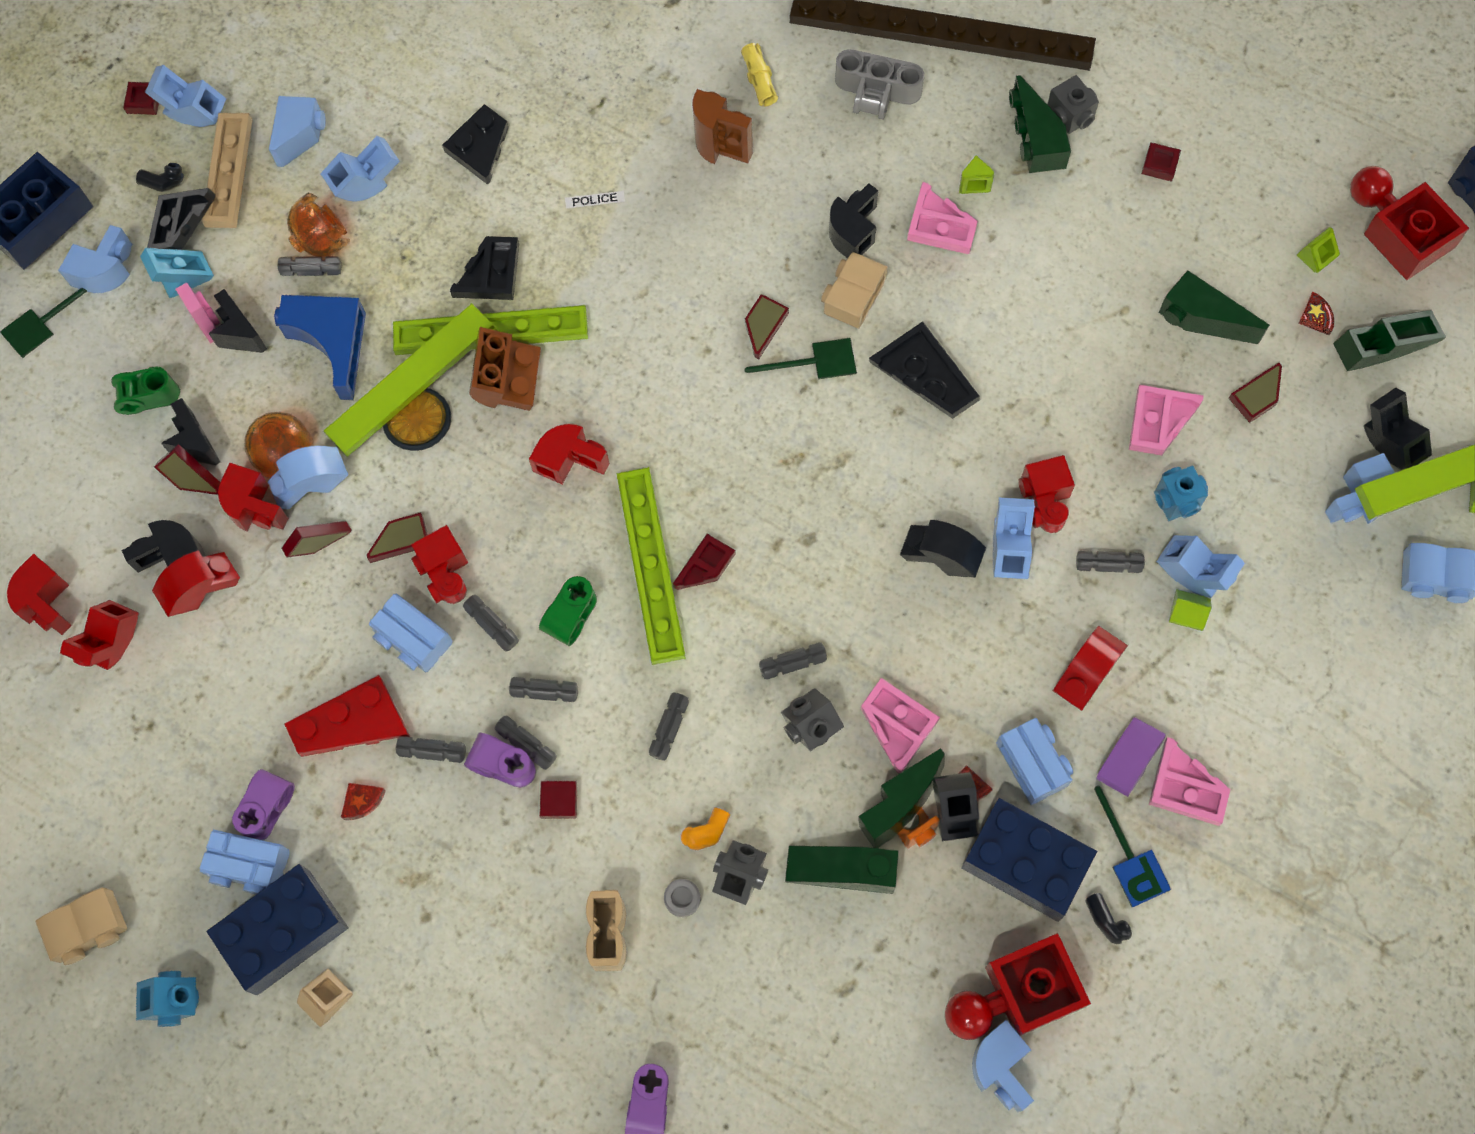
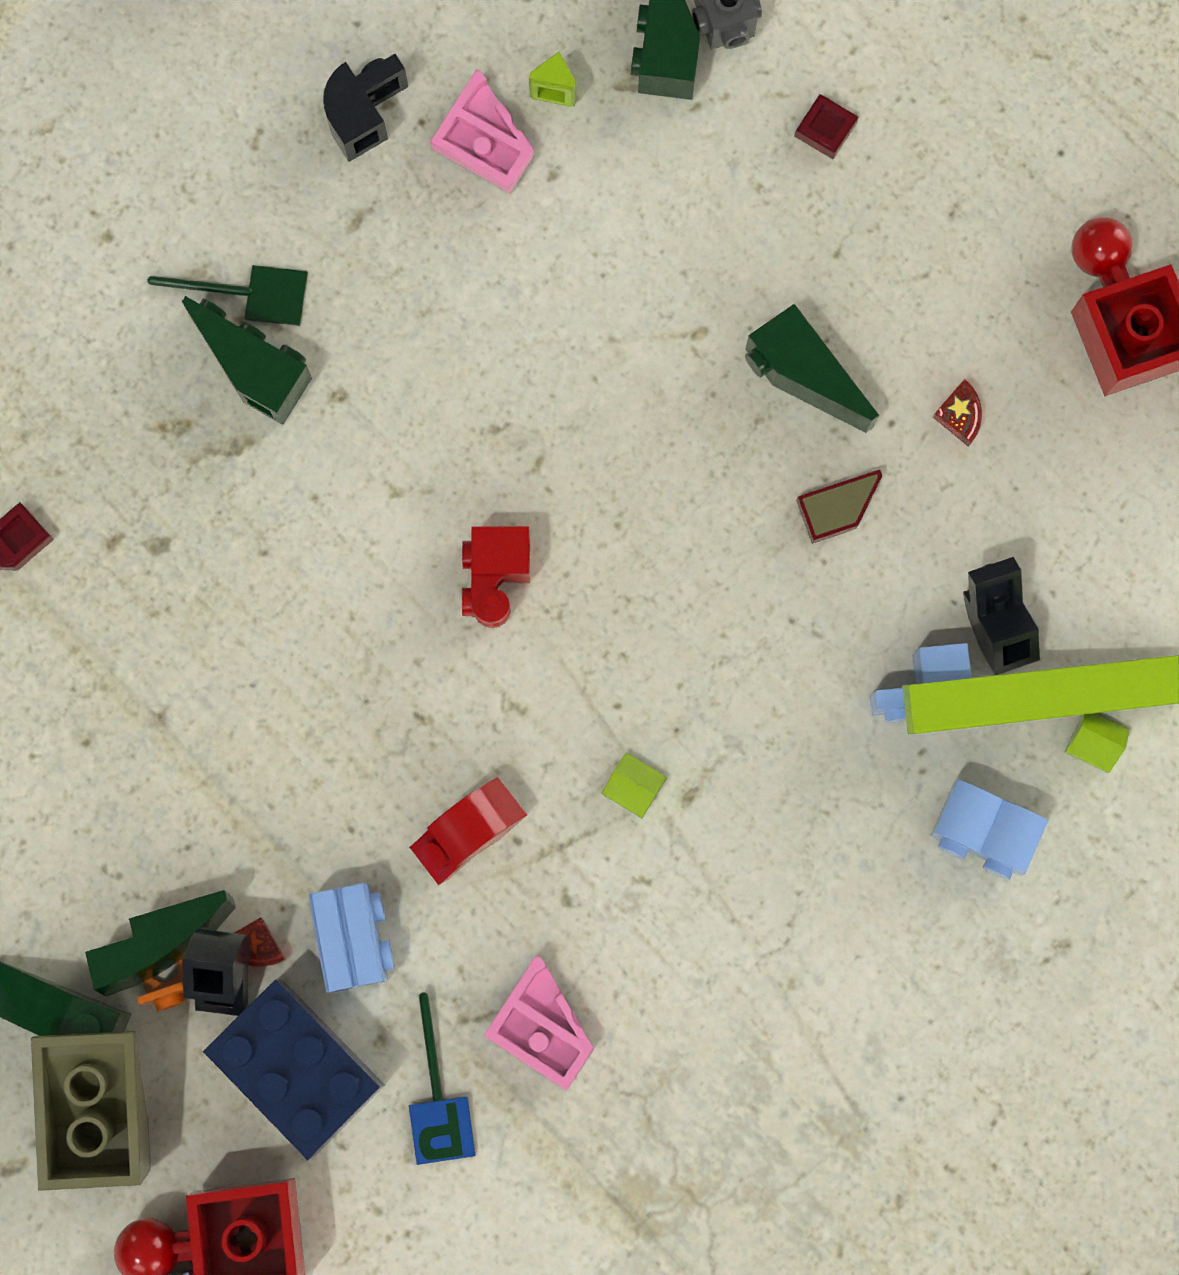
camera: 10 degrees right, 10 degrees up
(764, 322) = (193, 219): olive tile -> none
(793, 660) = (79, 711): dark grey axle -> none
(811, 720) = (70, 802): dark grey brick -> none
(839, 405) = (259, 372): none -> dark green slope
(854, 289) = (330, 204): tan brick -> none
(897, 722) = (188, 835): bright pink wing -> none
(899, 922) = (89, 1111): none -> olive slope
(926, 370) = (393, 349): black wing -> none
(946, 546) = (327, 613): black brick -> none
(1013, 538) = (422, 625): light blue brick -> none
(1103, 919) = (368, 1175): black arm -> none
(1110, 561) = (549, 689): dark grey axle -> none
(1131, 756) = (479, 967): medium lavender slope -> none
(1160, 417) = (688, 505): bright pink wing -> none
(1181, 492) = (669, 638): dark azure brick -> none
(1197, 568) = (660, 730): light blue brick -> none
(1320, 251) = (999, 321): lime slope -> none
(1388, 339) = (1045, 477): dark green slope -> none

